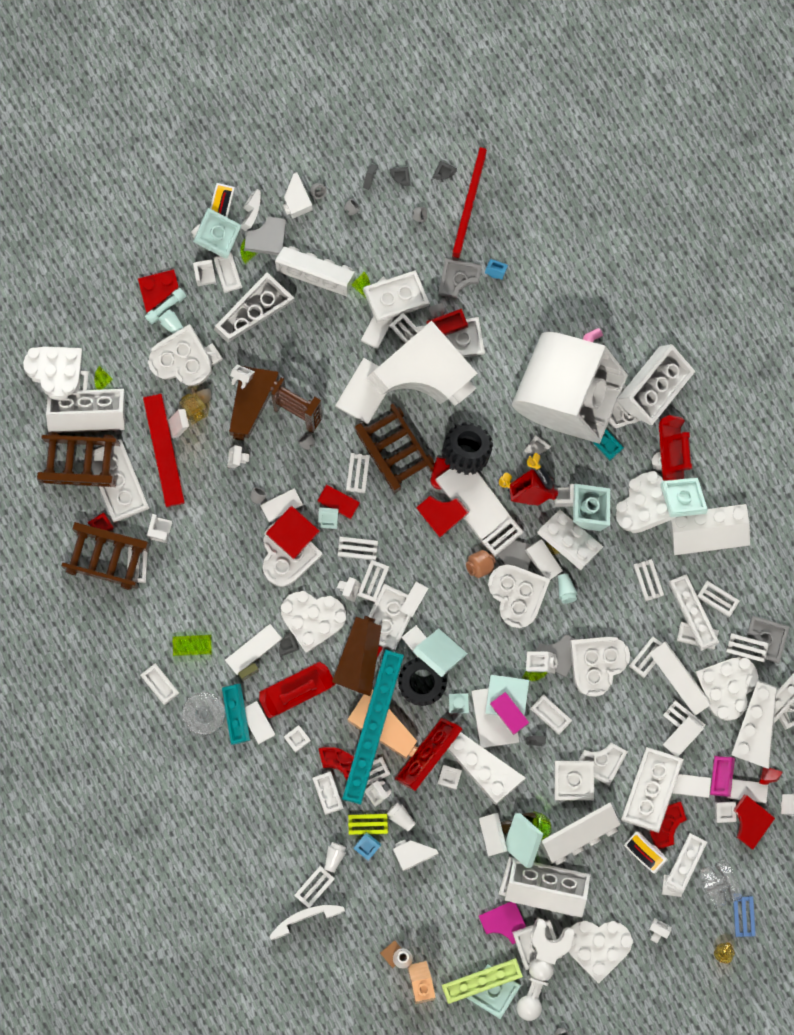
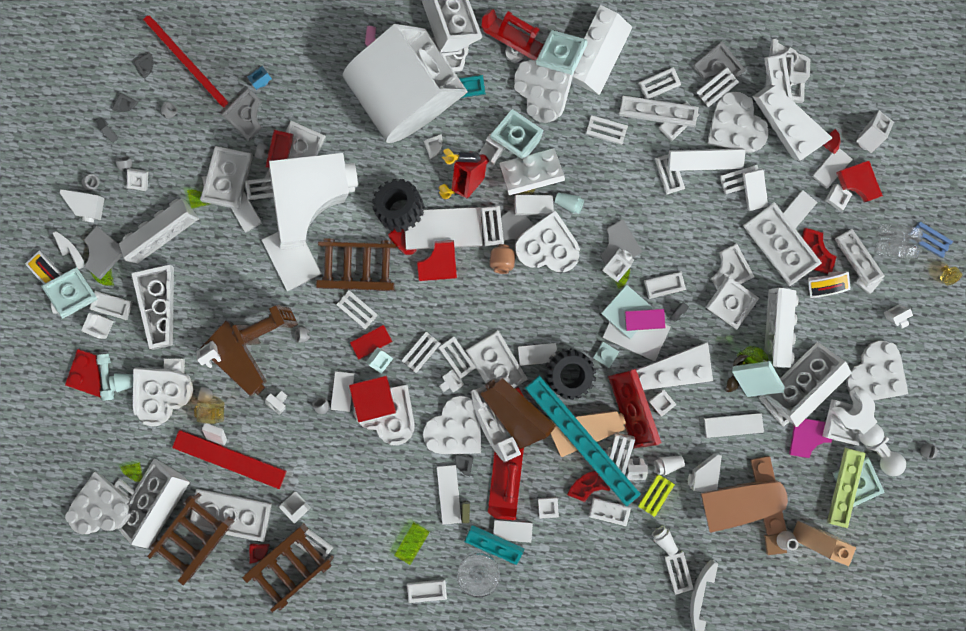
camera: 55 degrees left, 10 degrees up
(333, 648) = (493, 429): none -> white slope
(345, 226) = (137, 179): none -> white tile
(367, 846) = (674, 508): dark azure plate -> none
(398, 760) = (631, 439): none -> white tile
(414, 599) = (495, 334): white sticker -> none
(414, 903) = (748, 501): none -> nougat slope
(439, 652) = (557, 344): light aqua tile -> none
(471, 851) = (733, 425): none -> white tile
(493, 834) = (732, 399): white tile -> none
(596, 663) = (648, 218): white plate -> none
(722, 776) = (807, 180): dark pink tile -> none

